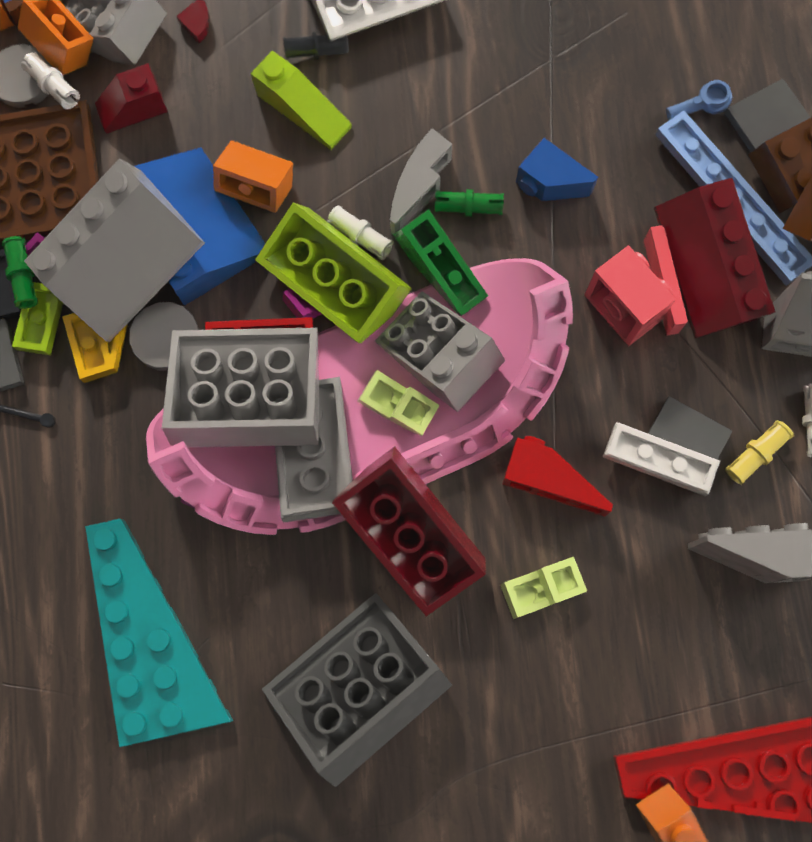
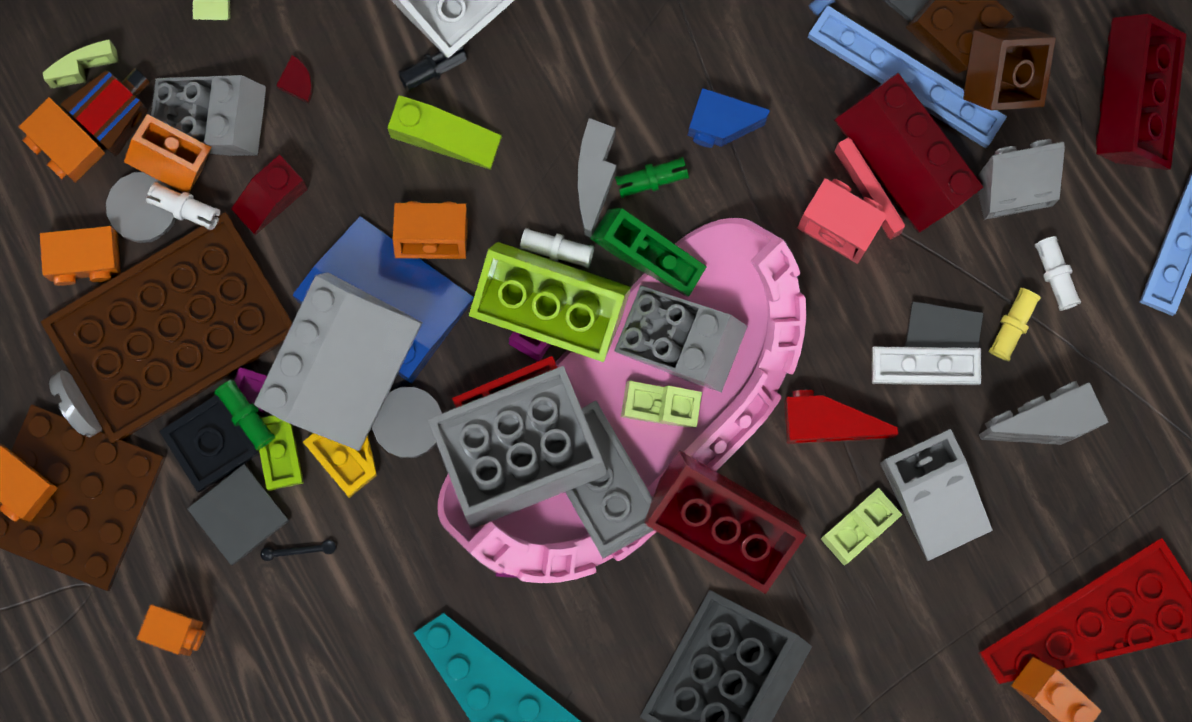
camera: 25 degrees left, 5 degrees up
(629, 584) = (937, 494): none -> light grey slope

